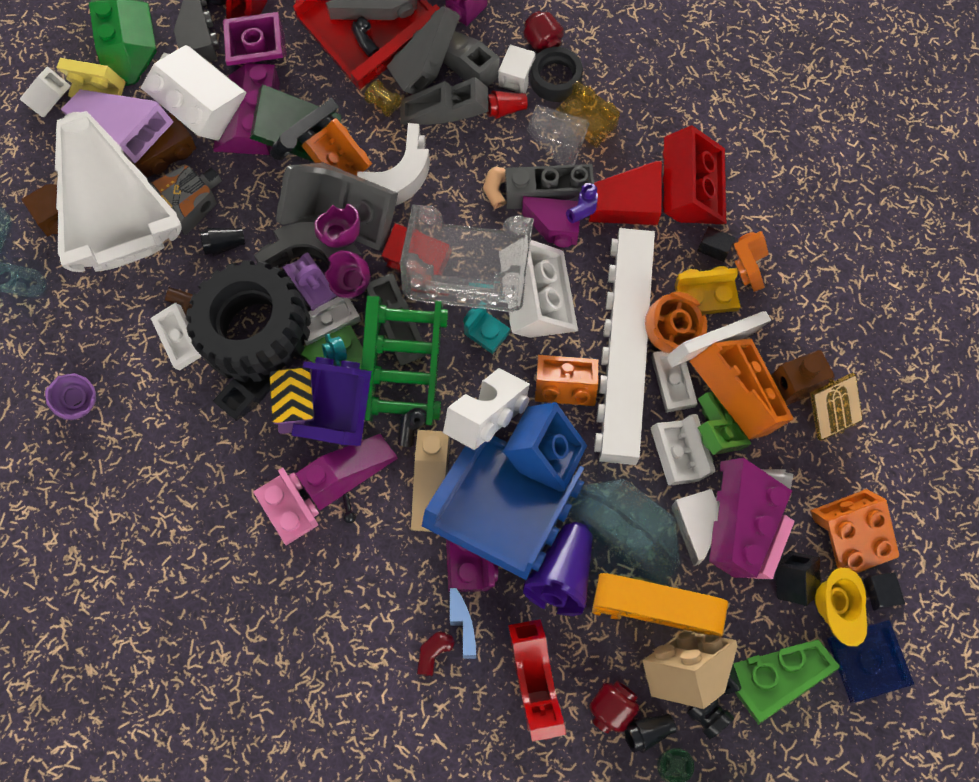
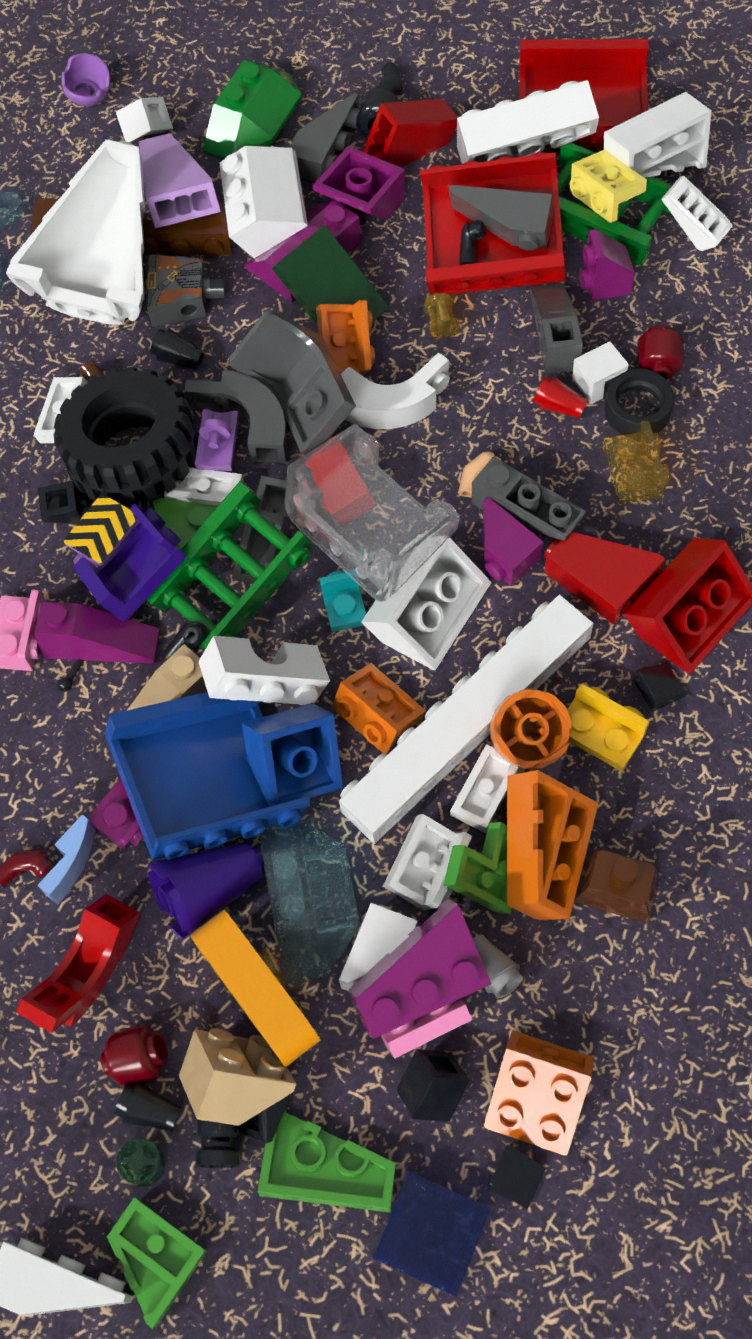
camera: 45 degrees right, 5 degrees down
(90, 77) = (189, 131): light yellow bracket -> none
(303, 129) = (328, 291): black plate -> none
(334, 349) = (178, 515): teal plate -> none
(338, 226) = (277, 402): magenta hair -> none
(347, 274) = (249, 454): magenta hair -> none
(422, 57) = (513, 295): dark grey slope -> none
(445, 103) = (498, 359): dark grey slope -> none
(558, 133) = (586, 463): clear wing -> none
(586, 204) = (543, 546): dark purple arm -> none
(734, 331) = (589, 783): white tile -> none
(749, 250) = (667, 719): orange bracket -> none
(836, 406) = (631, 943): piece -> none
(843, 606) = (449, 1152): yellow piece -> none

